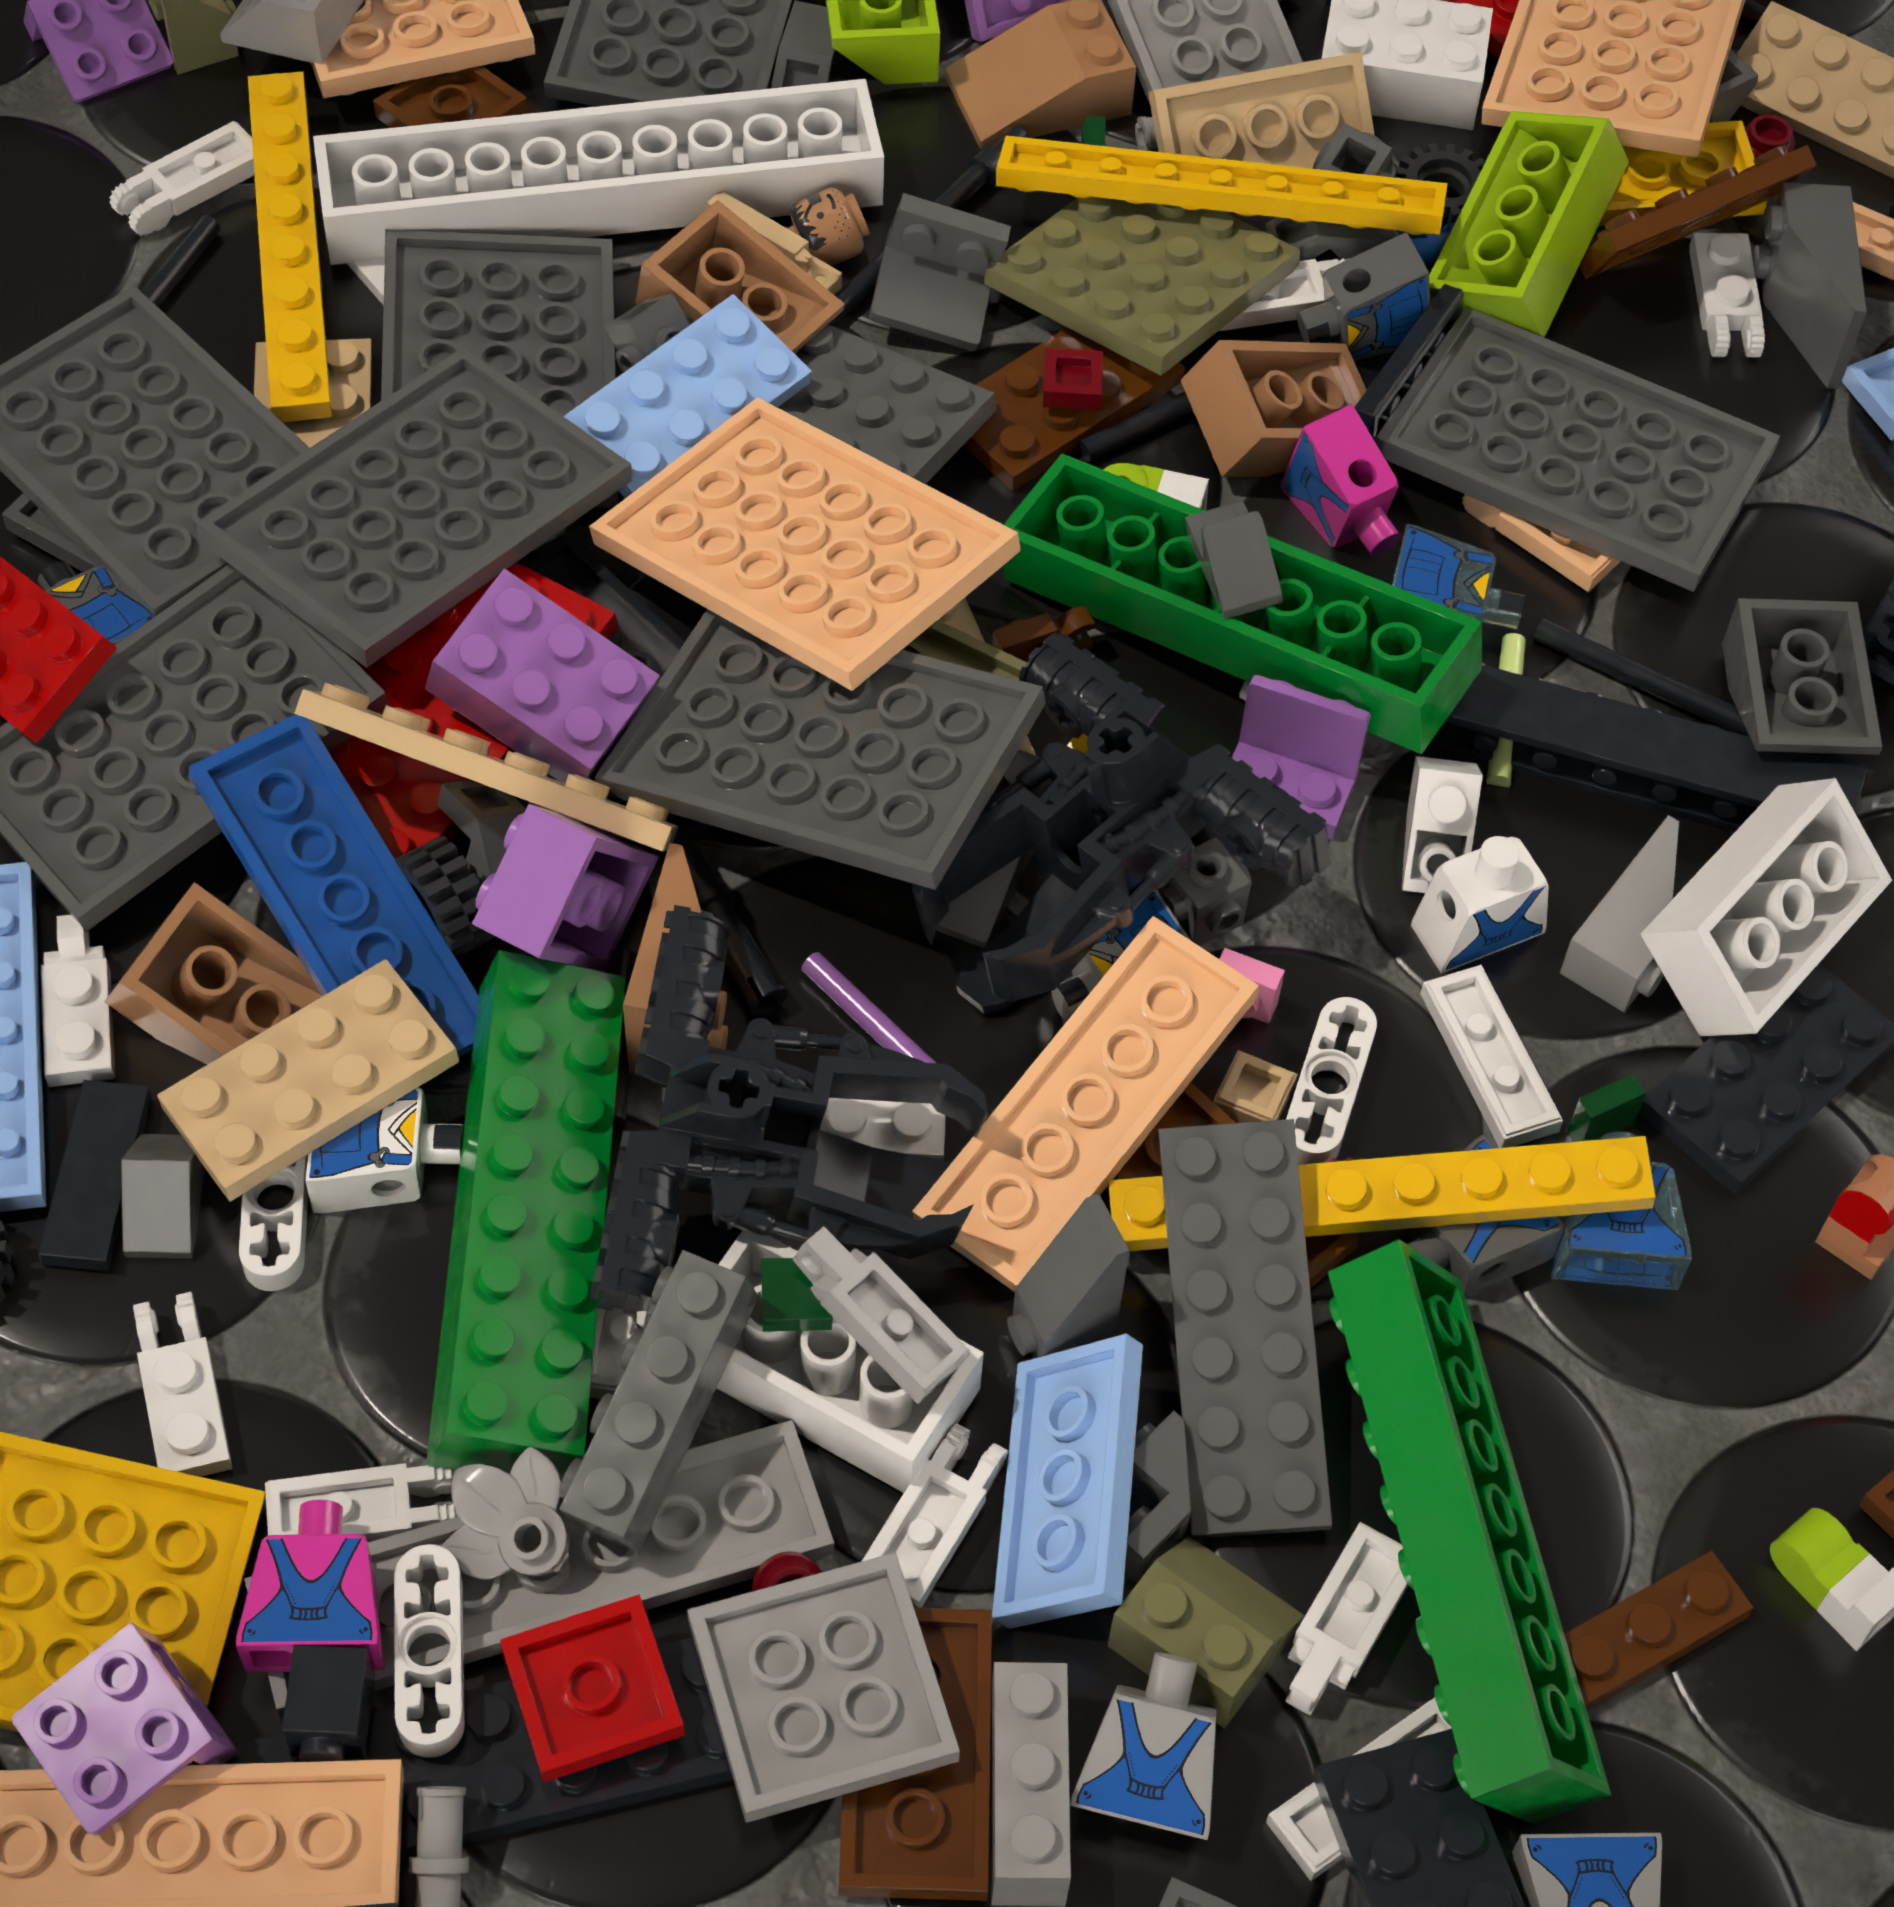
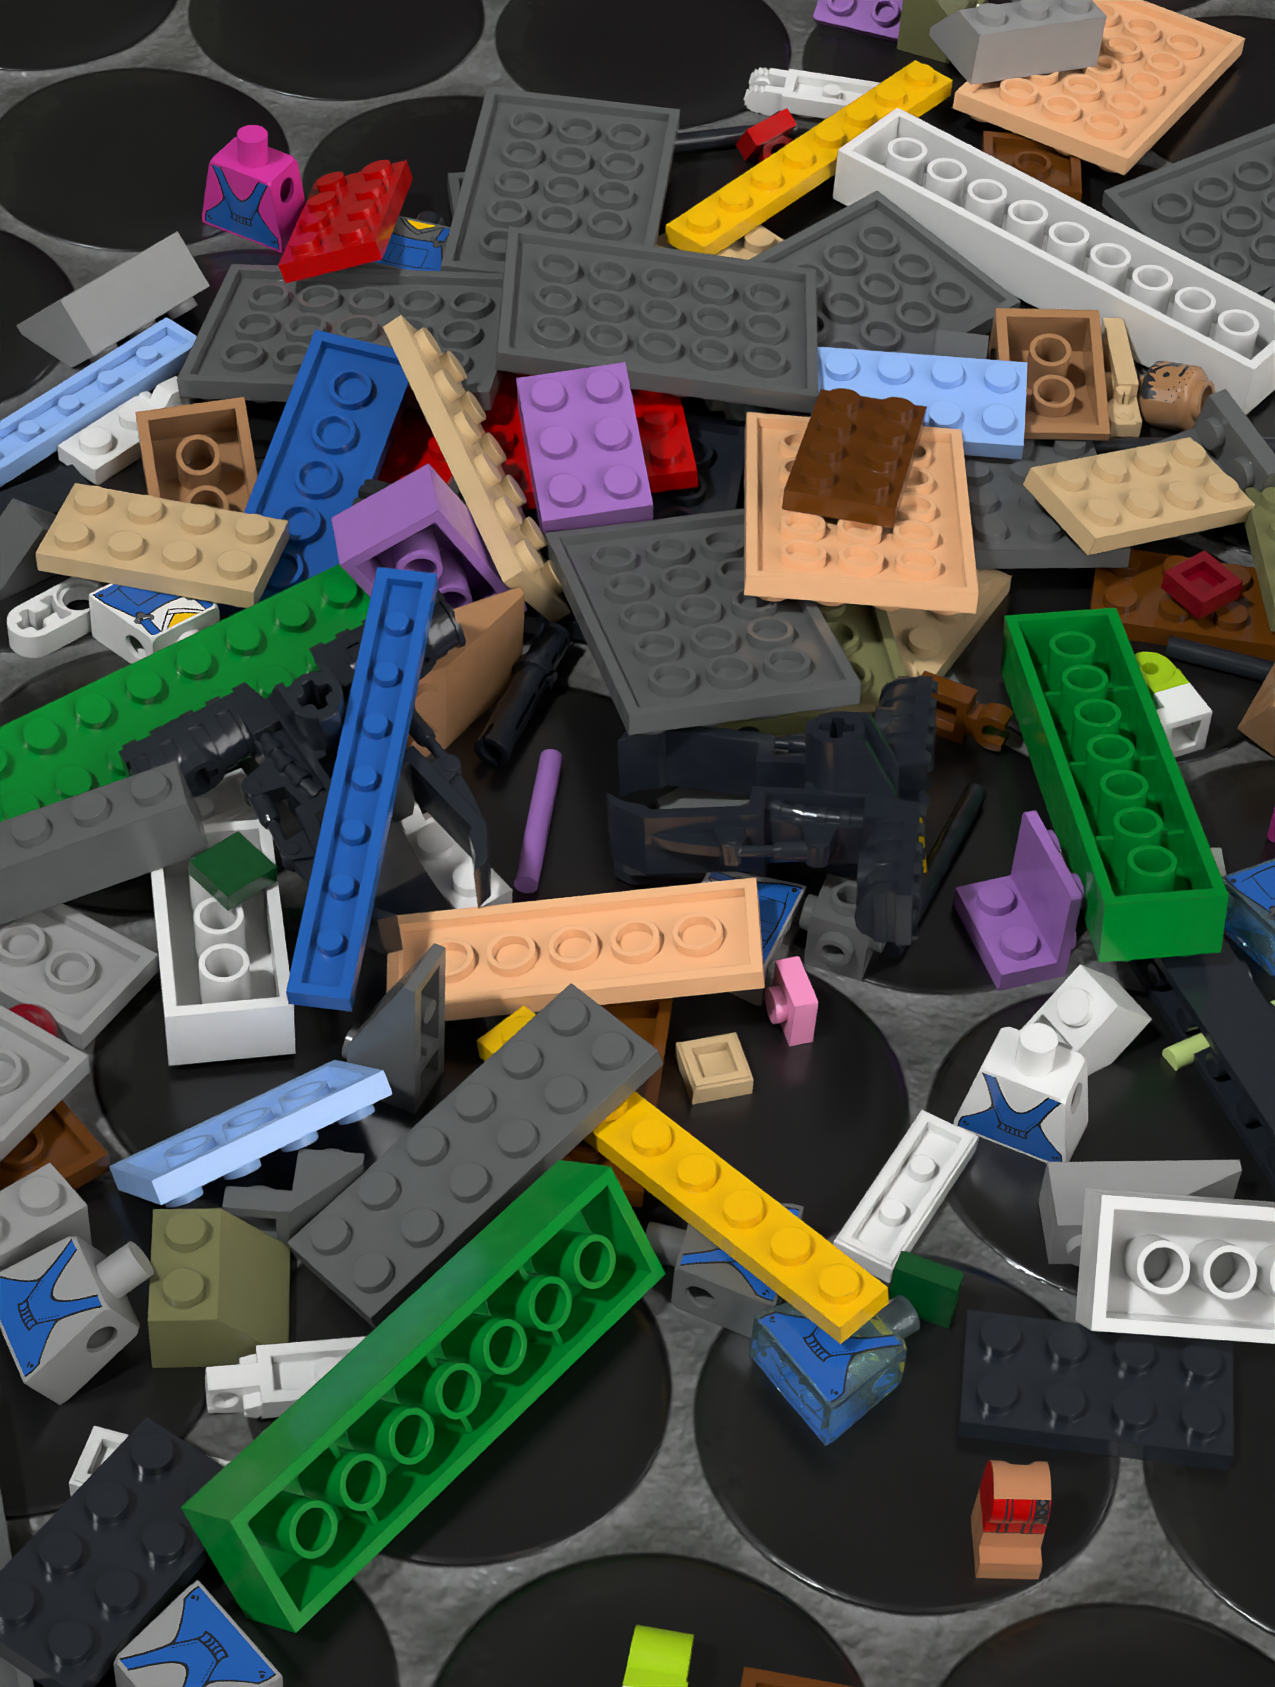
camera: 50 degrees right, 10 degrees down
(214, 252) = (766, 136): none -> red tile
(748, 494) = (855, 457): none -> reddish brown plate
(842, 1125) = (362, 791): none -> blue plate
(881, 1314) = (250, 918): light grey hinge -> none
(936, 1513) = (162, 1083): white hinge -> none
(946, 341) = (1138, 495): none -> tan plate
(1235, 558) = (1115, 730): dark grey slope -> none
(1349, 1065) = (788, 1085): white beam -> none
(1655, 1628) = (481, 1593): reddish brown plate -> none

